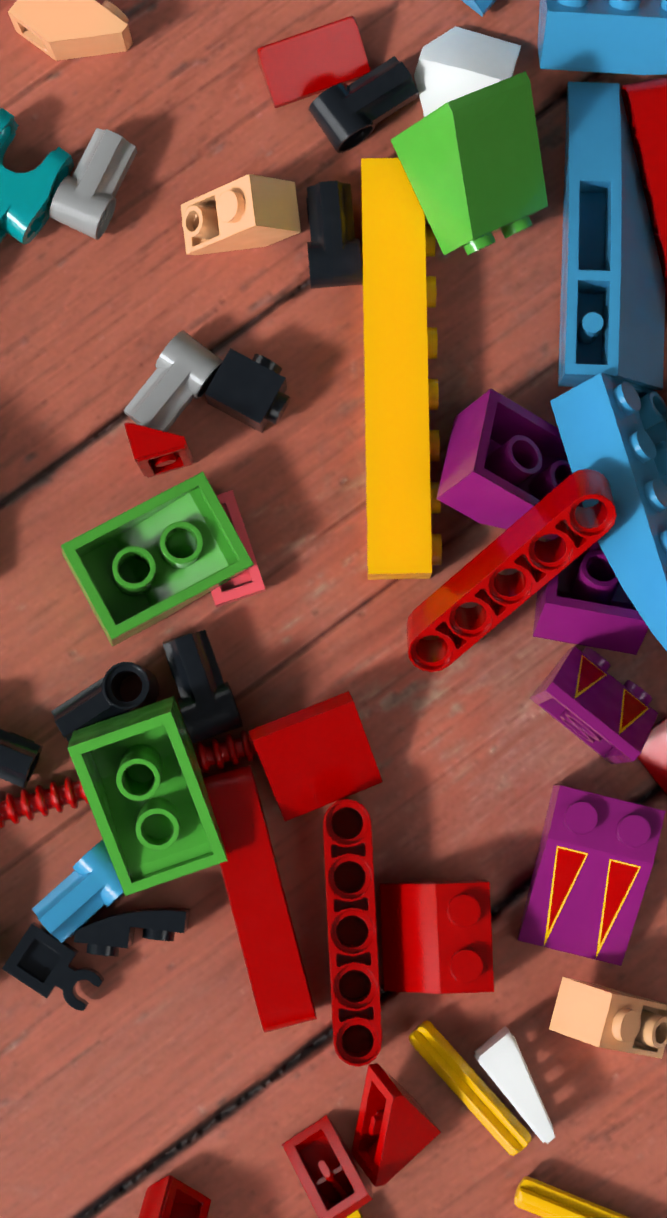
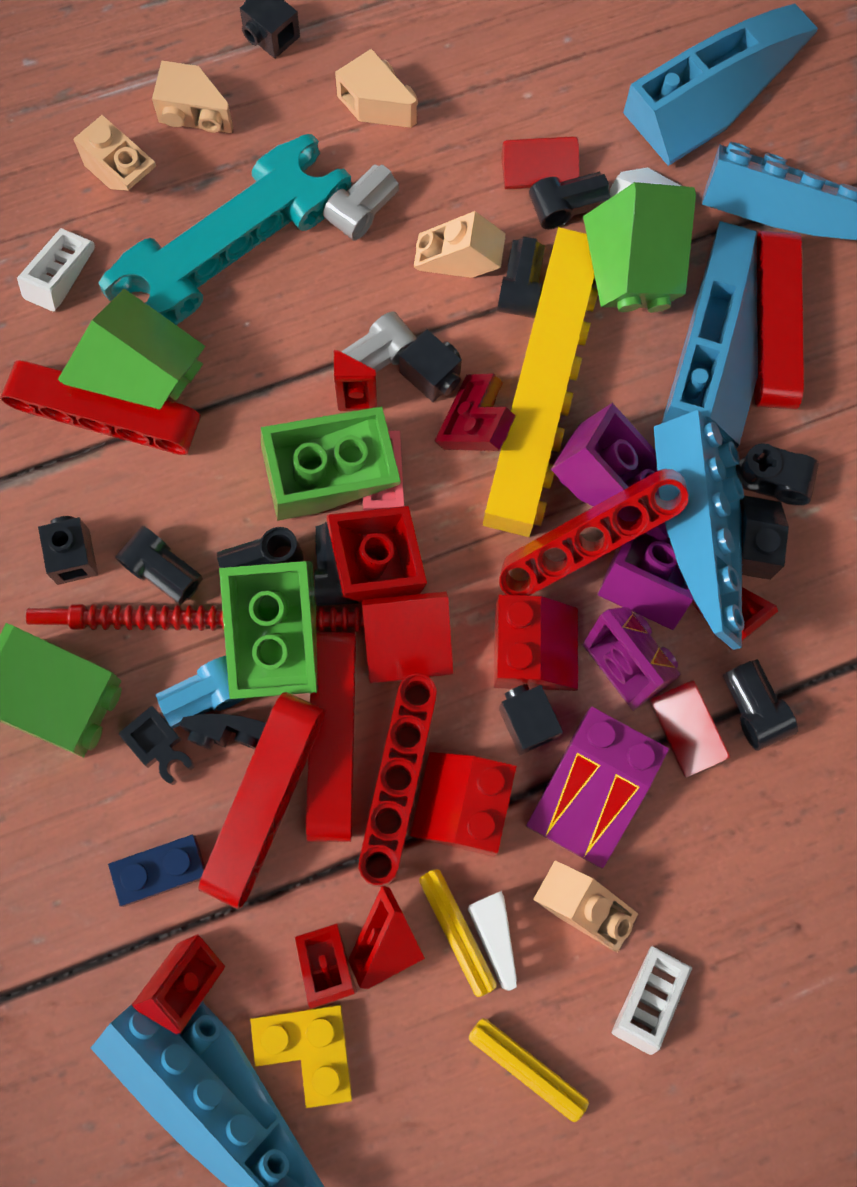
camera: 10 degrees right, 10 degrees down
(98, 1113) = (157, 870): none -> dark blue plate
(199, 1002) = (262, 800): none -> red beam
(250, 666) = (376, 553): none -> red slope
(315, 454) = (473, 419): none -> dark red plate
(473, 718) = (535, 643): none -> red slope
(489, 814) = (529, 718): none -> black brick

